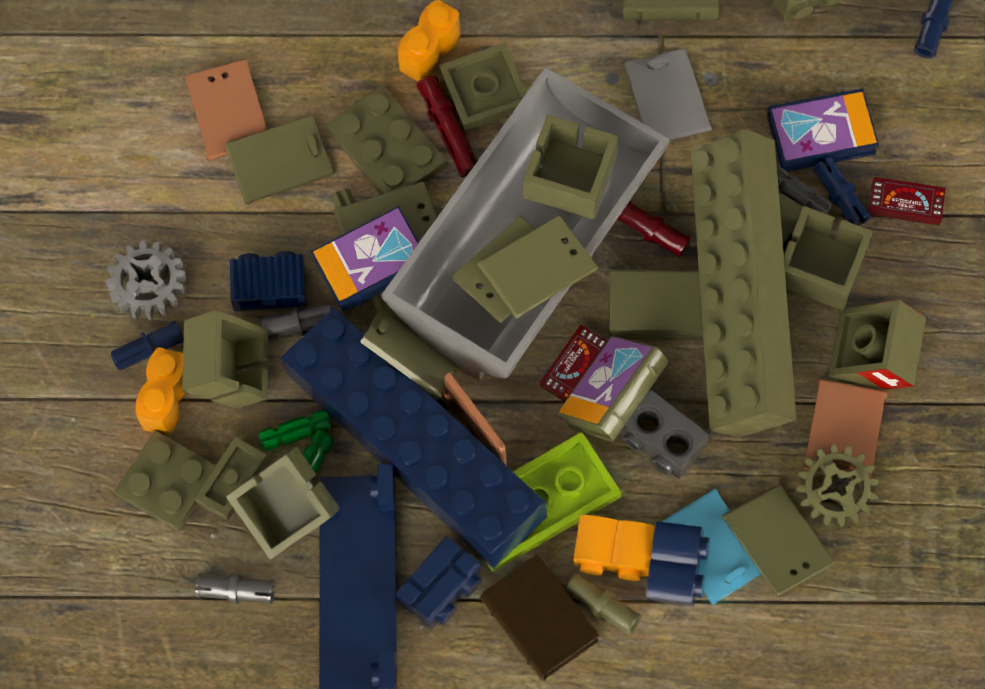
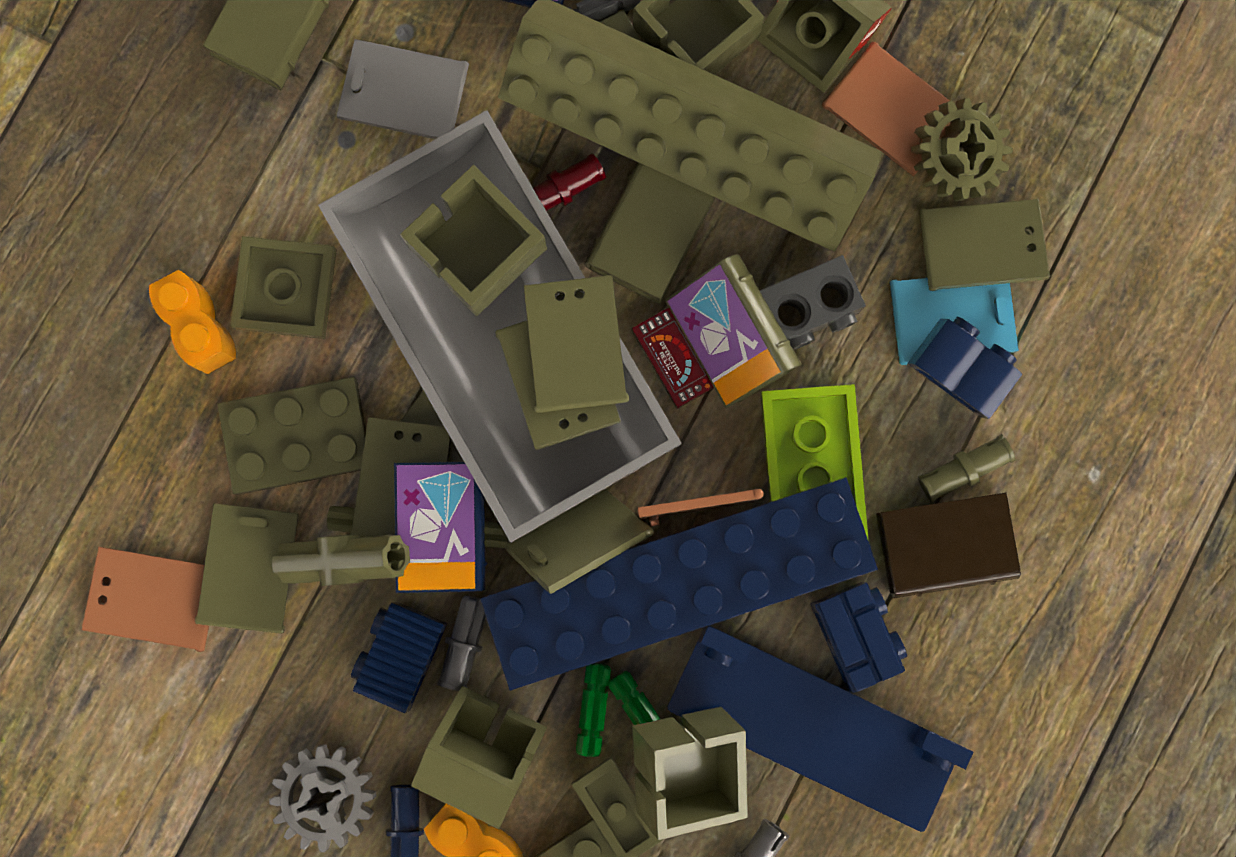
camera: 65 degrees left, 15 degrees up
(315, 207) = (341, 559): none -> olive piece
(442, 114) = (302, 353): dark red pin -> none
(614, 547) = (911, 423): light orange brick -> none

